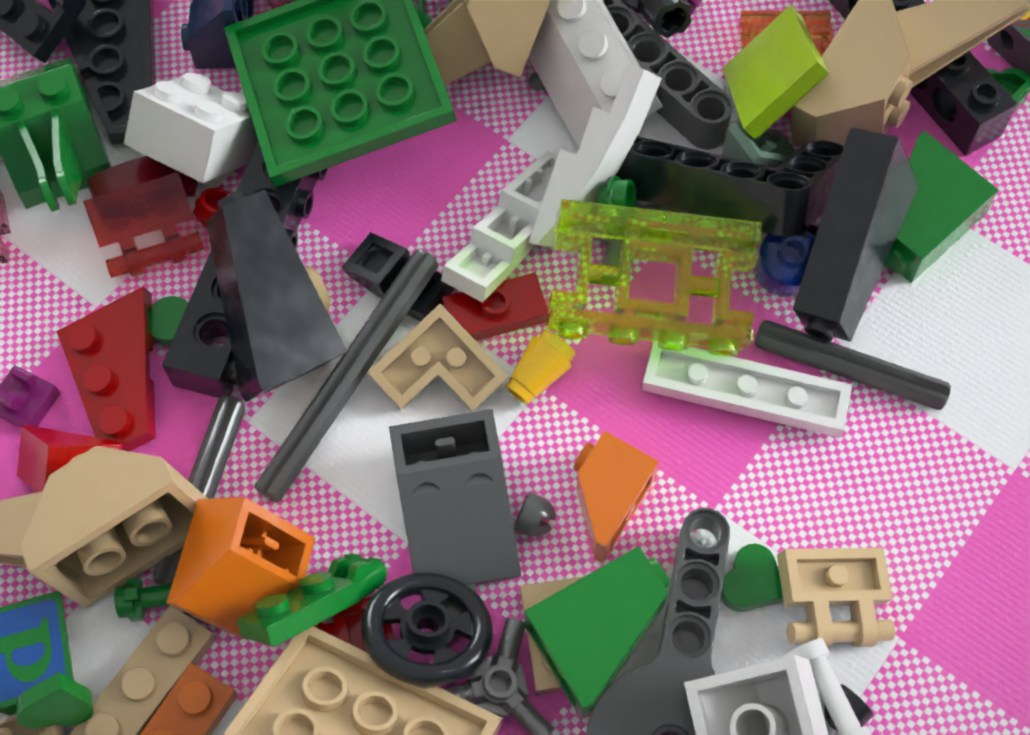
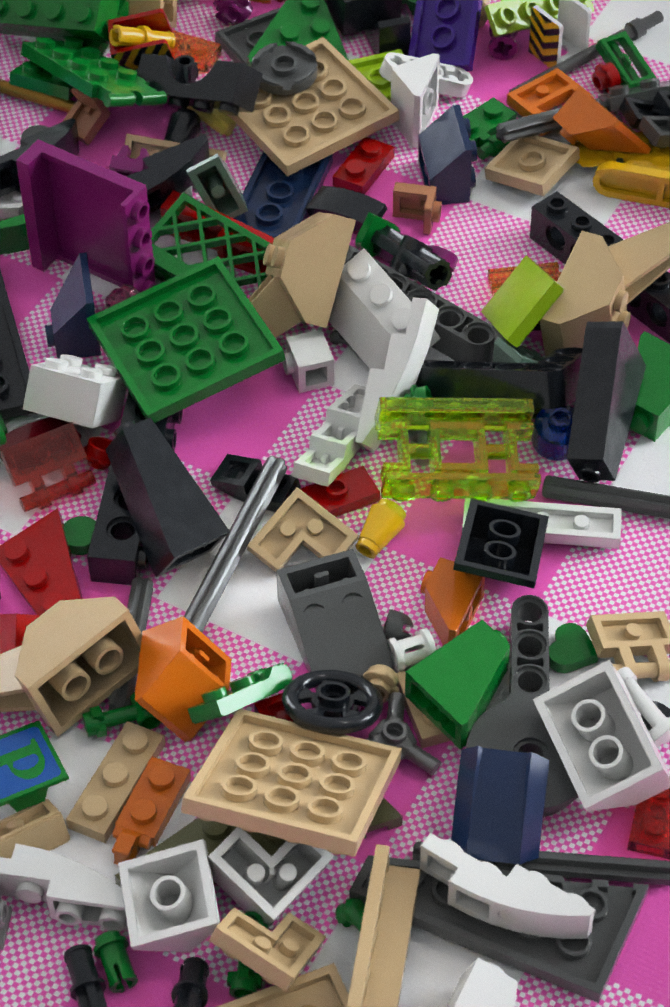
camera: 10 degrees left, 15 degrees down
(56, 702) = (57, 787): green tile -> none
(495, 113) = (309, 361): none -> white brick
(500, 598) = (384, 679): none -> tan plate
(547, 556) = (422, 641): none -> white bush
(684, 435) = (501, 543): none -> black slope

